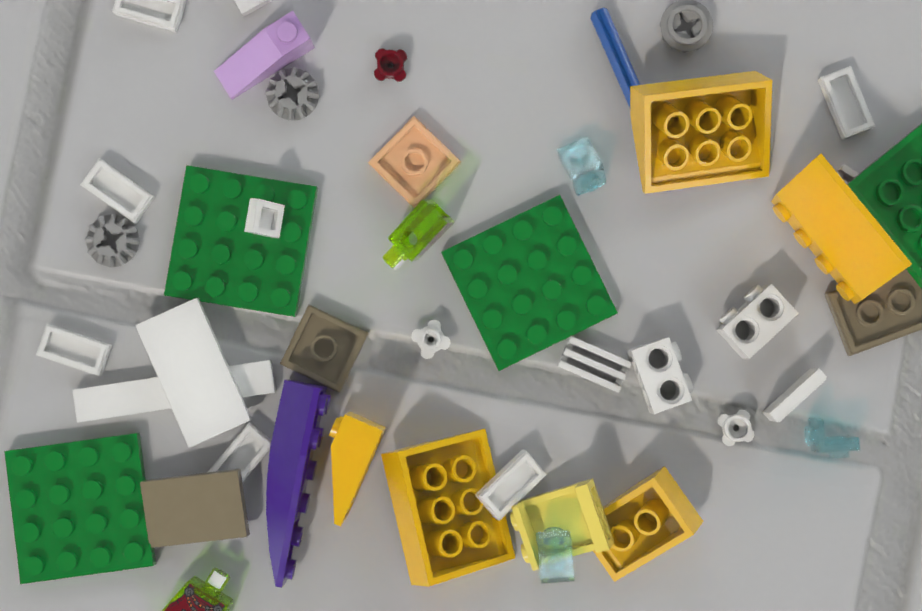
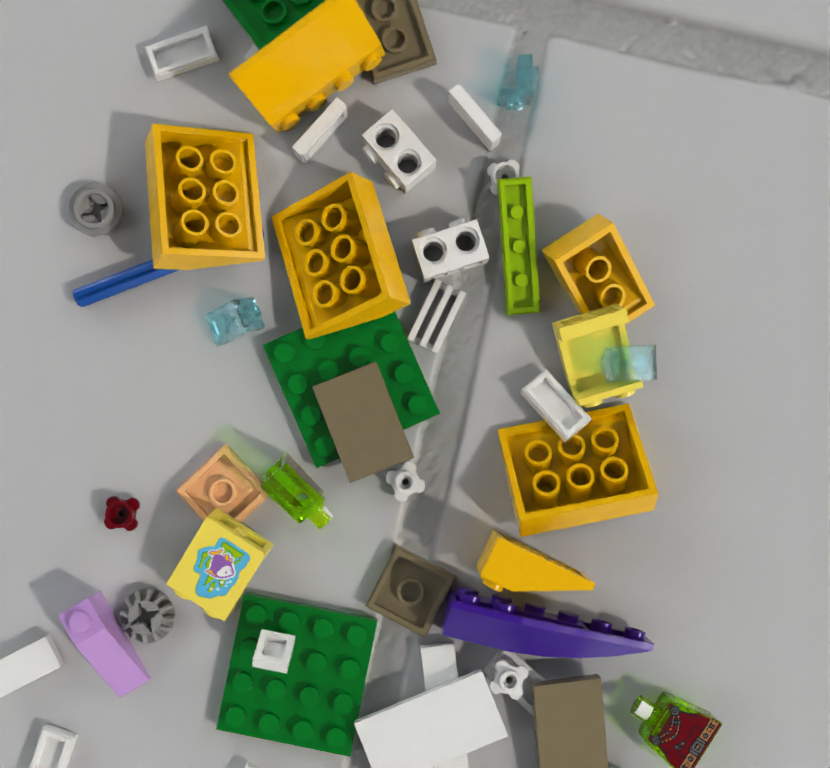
camera: 85 degrees left, 0 degrees up
(251, 441) = (504, 670): none -> white plate
(345, 161) = (219, 564): none -> light yellow panel
(488, 295) = (363, 422): none -> dark tan tile
(649, 267) = (340, 257): none -> yellow slope
(667, 443) = (518, 245): none -> lime tile
(774, 243) = (320, 130): none -> white tile

